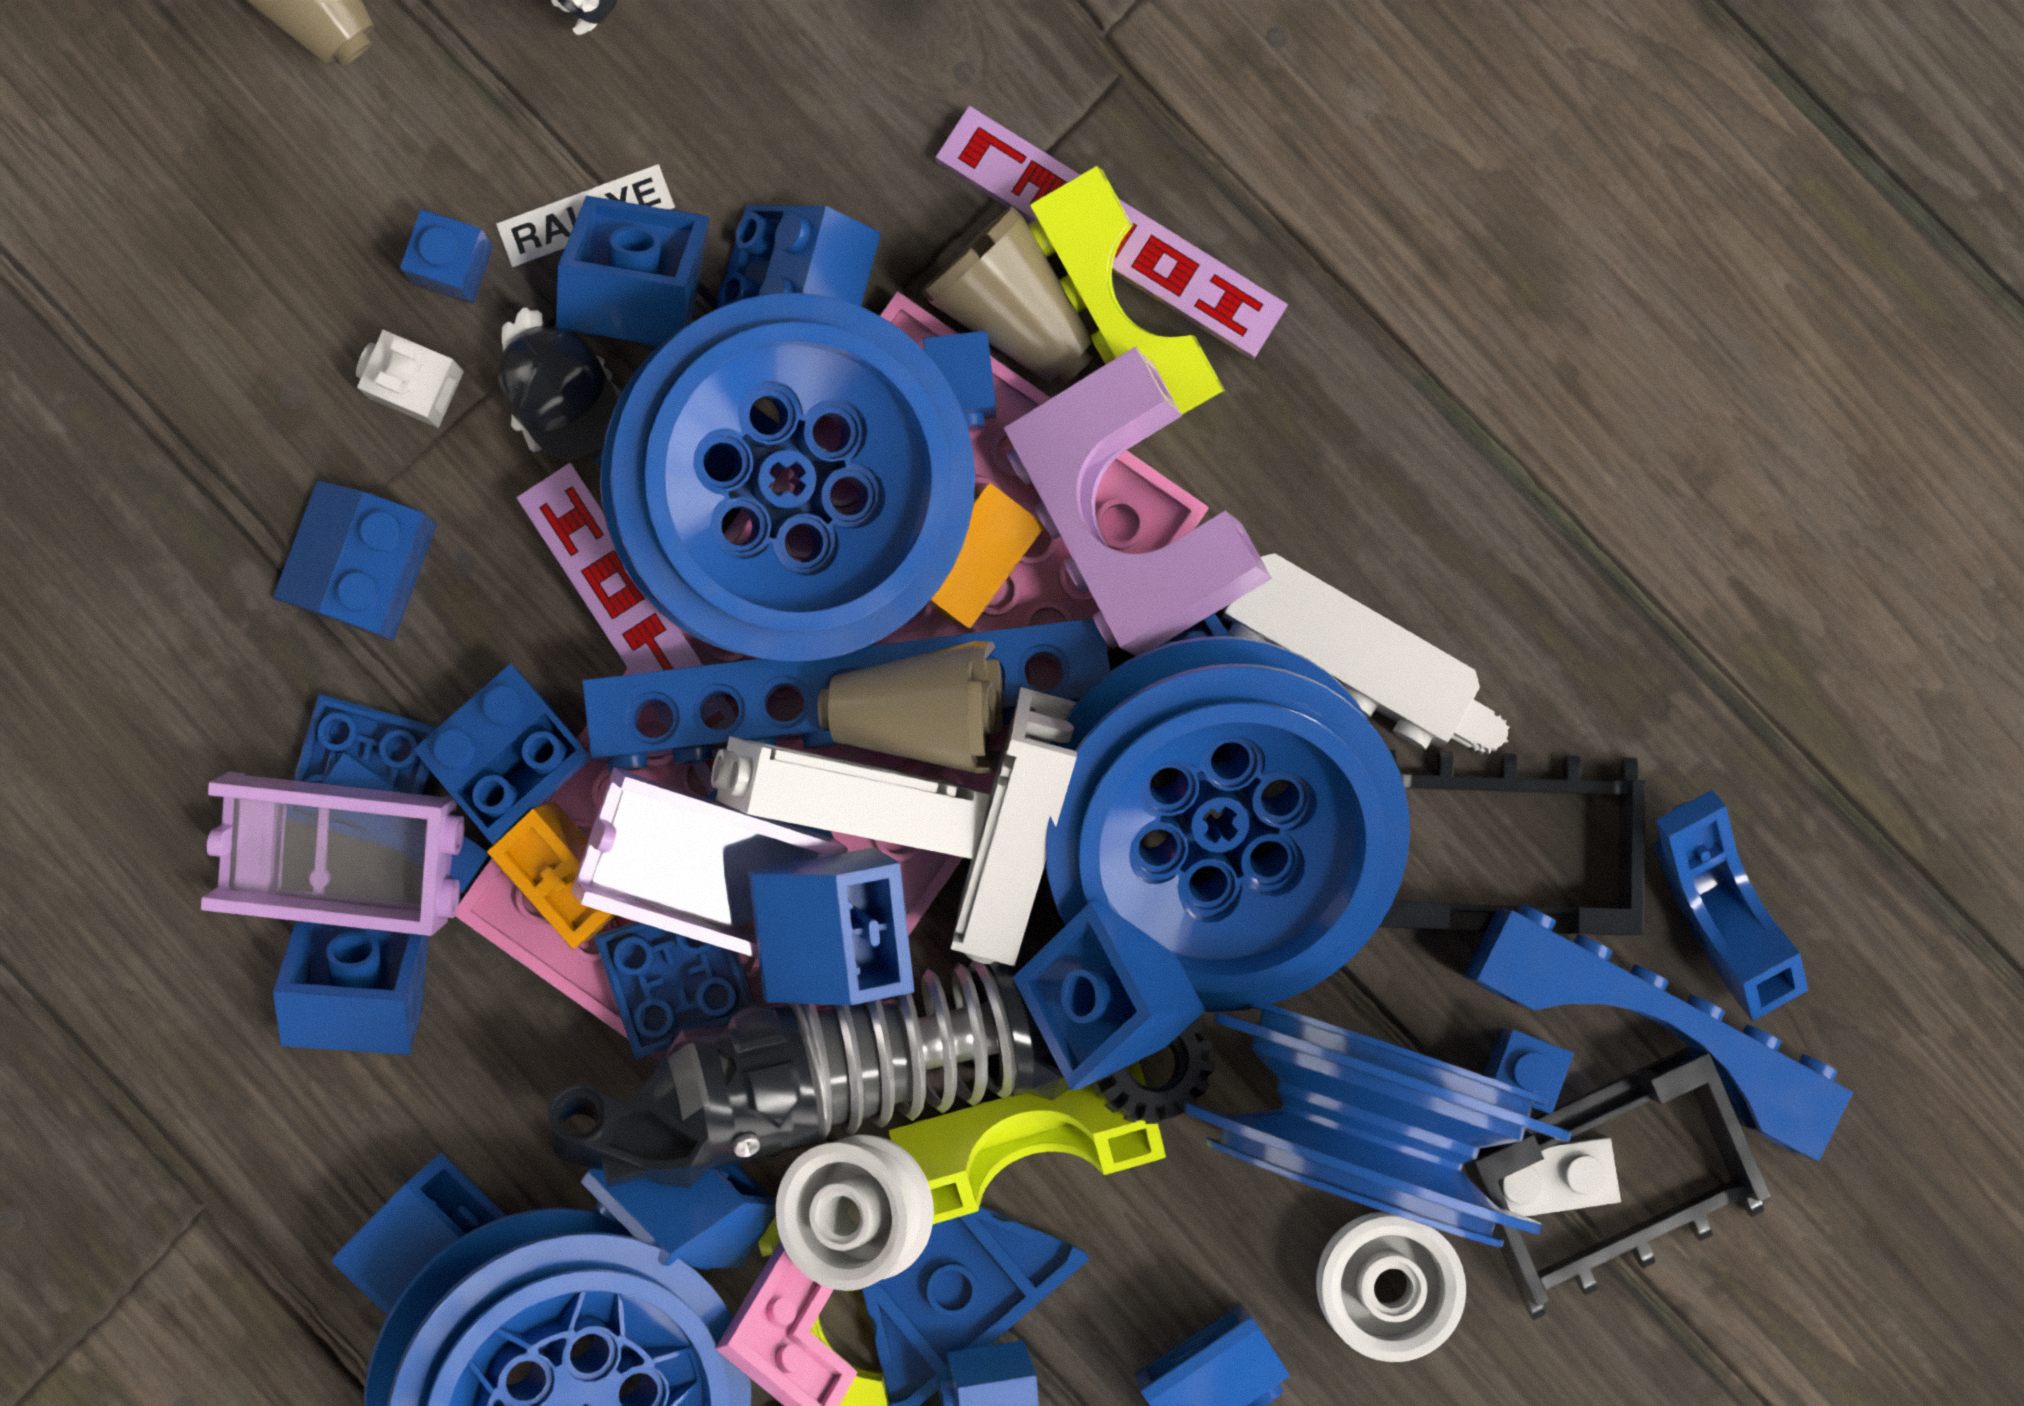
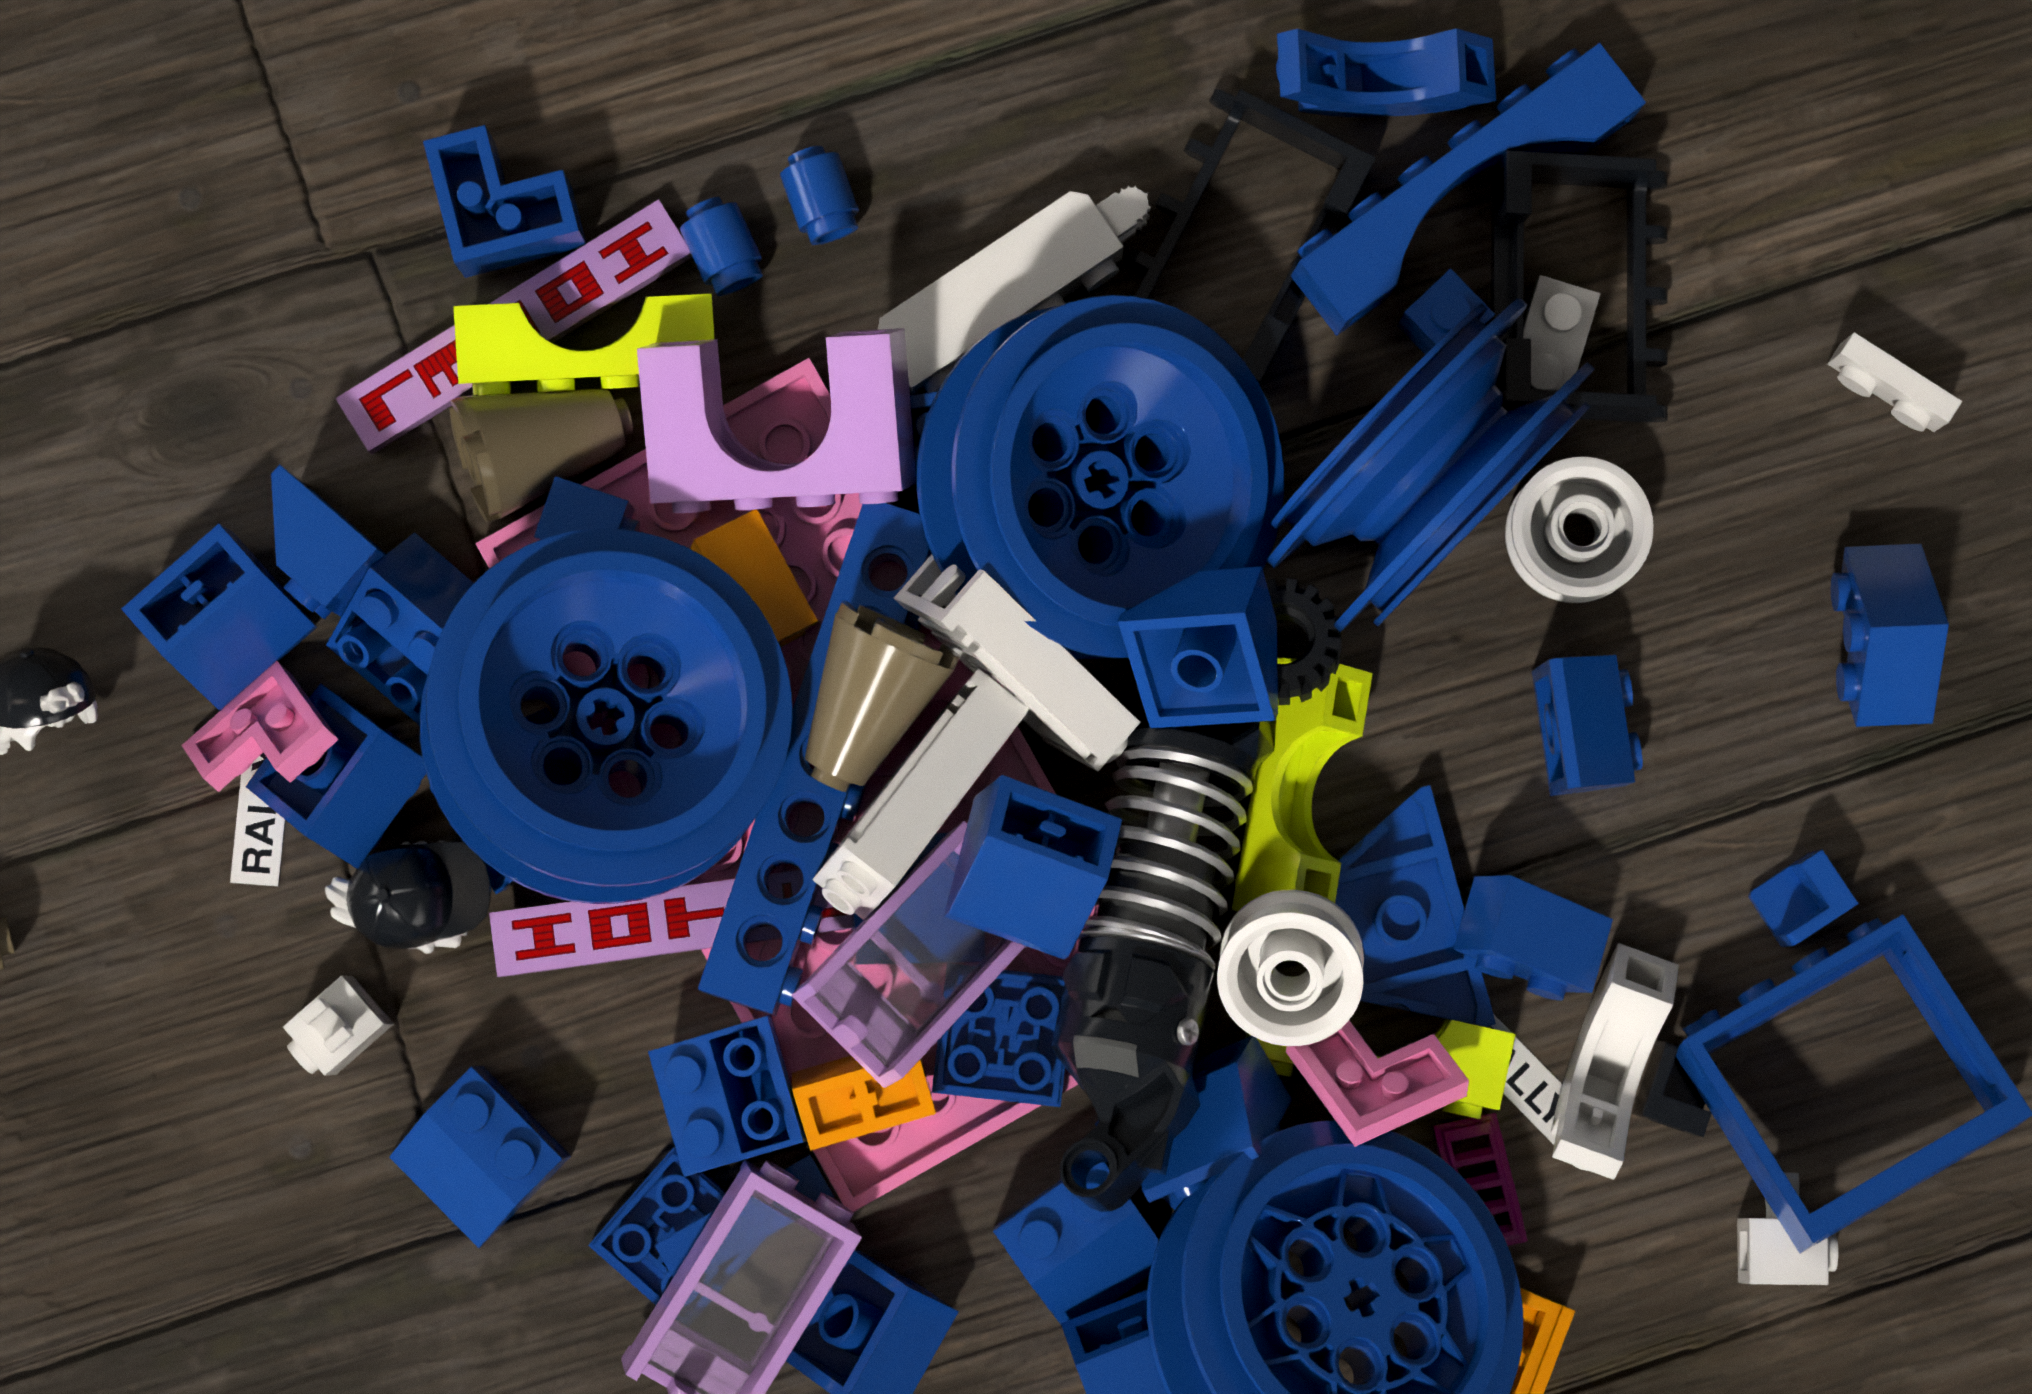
camera: 60 degrees left, 0 degrees up
(446, 256) = (241, 938): blue brick -> none
(504, 1135) = (1075, 1253): none -> blue slope
(650, 183) = (265, 718): none -> bright pink plate
(723, 97) = (219, 616): none -> blue slope
(826, 151) = (317, 547): none -> blue slope
(1195, 160) = (494, 221): none -> blue brick
(1272, 381) = (722, 246): none -> blue brick
(1362, 446) = (820, 195): none -> blue brick

